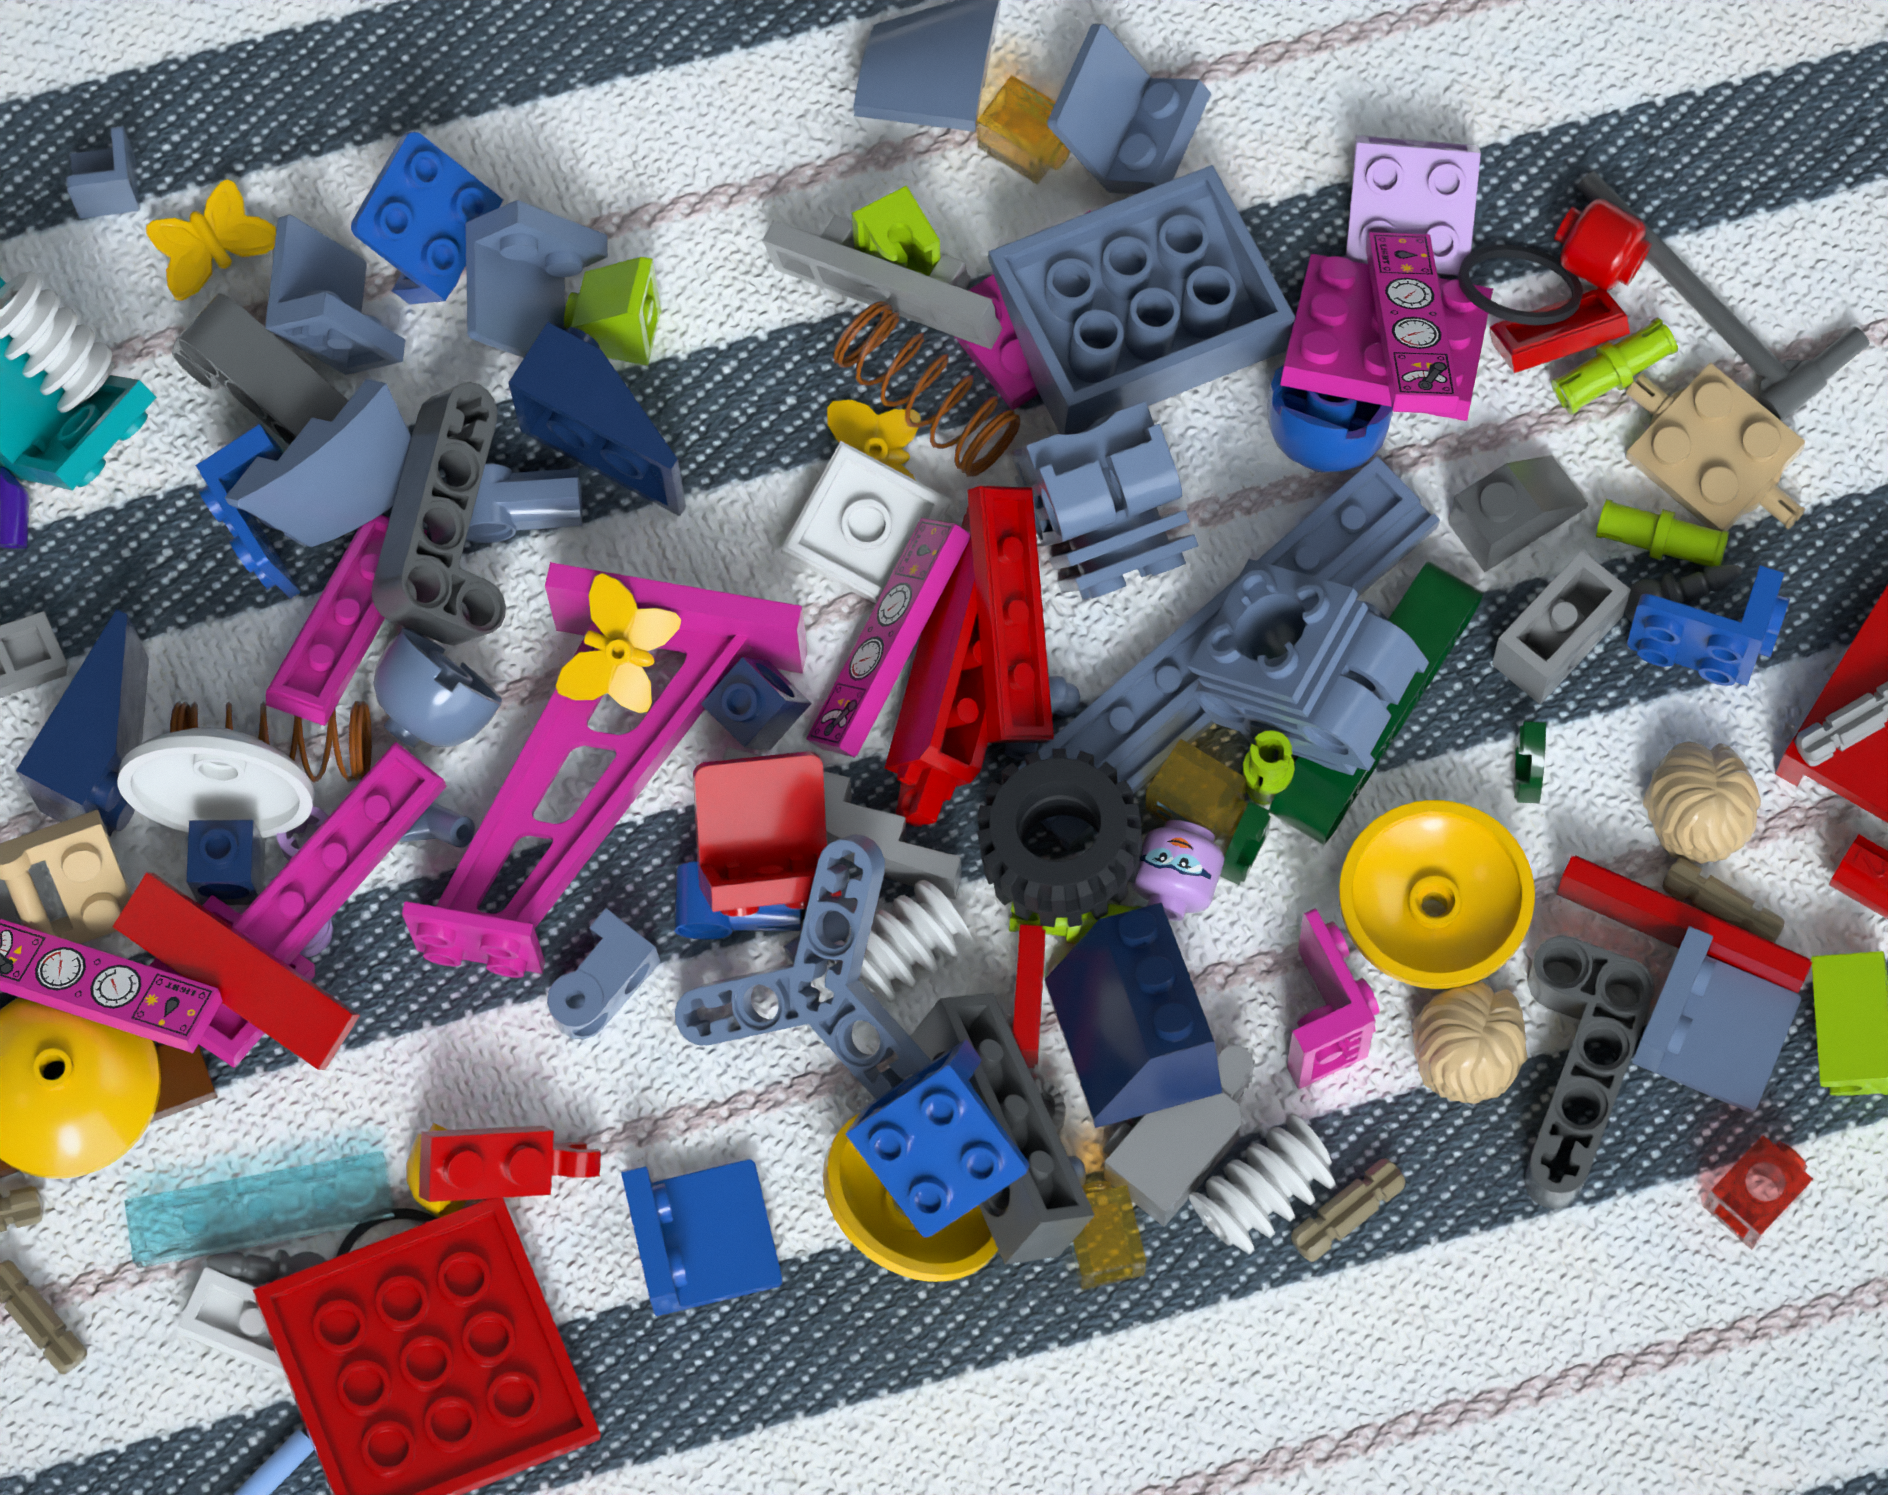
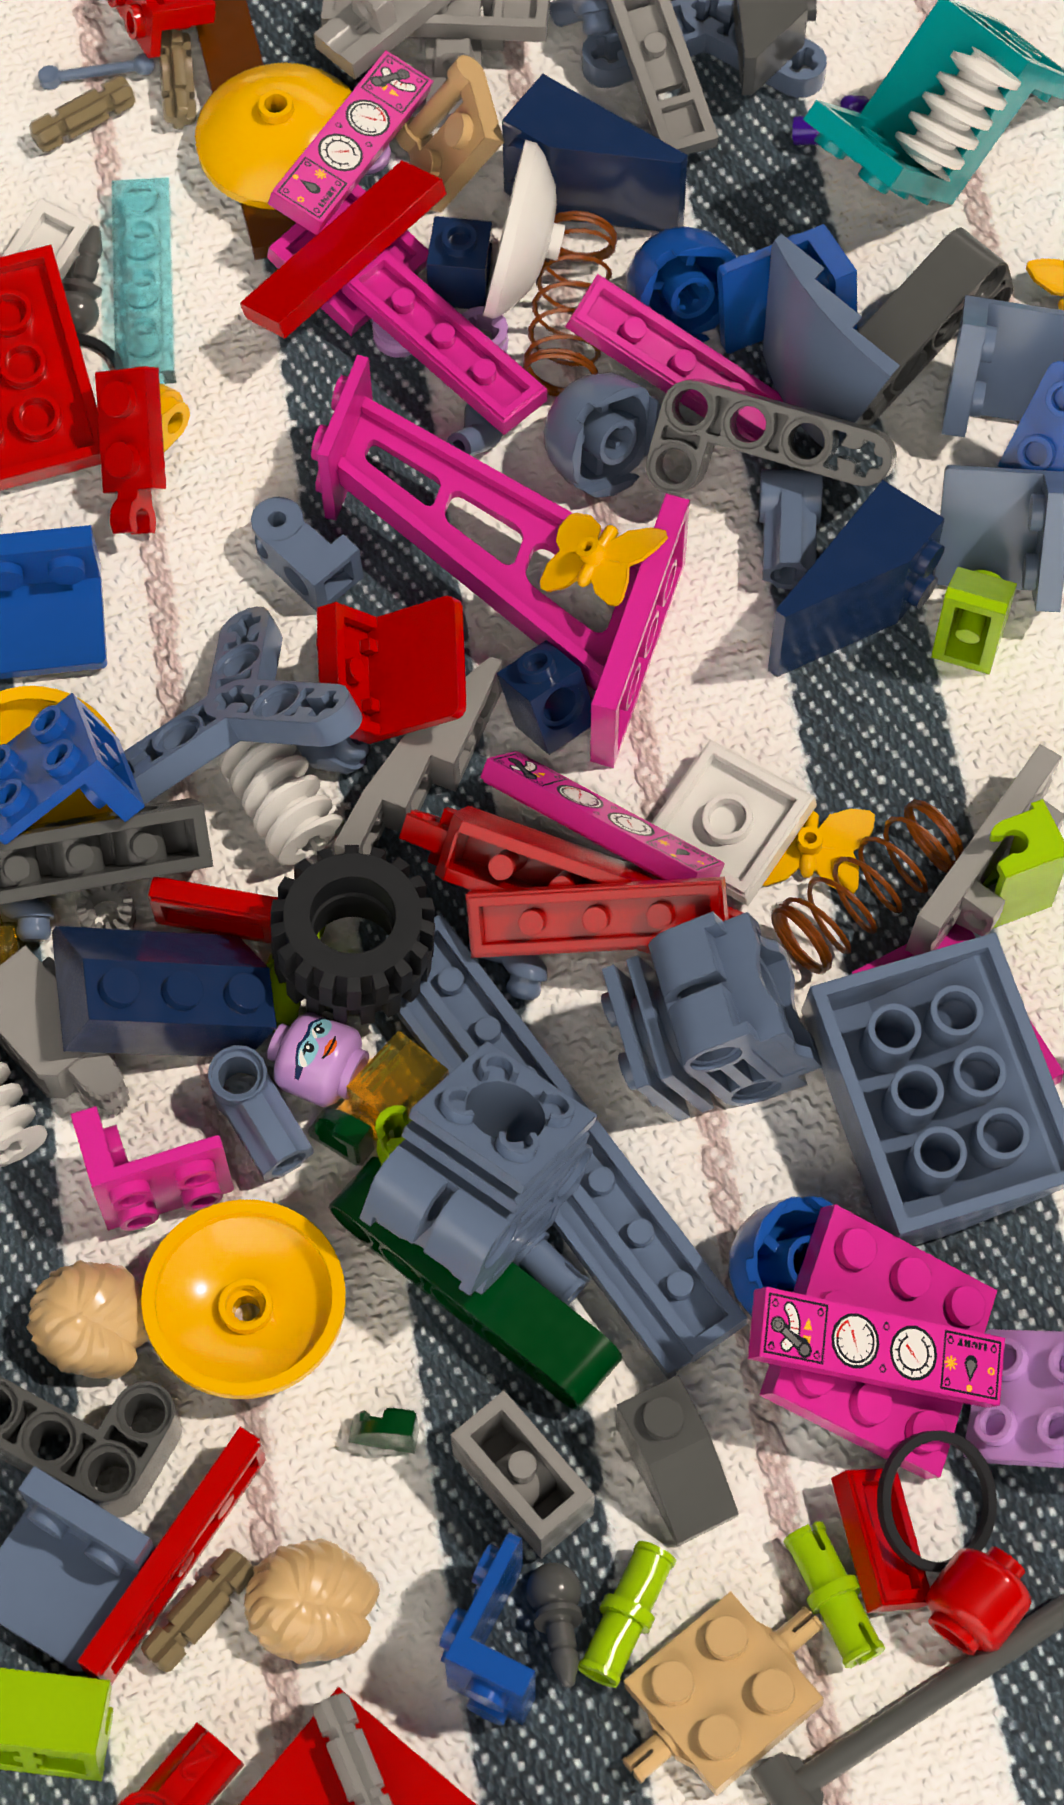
camera: 95 degrees right, 5 degrees down
(234, 628) = (679, 277): none -> blue cylinder
(1241, 920) = (259, 1115): none -> sand blue piece

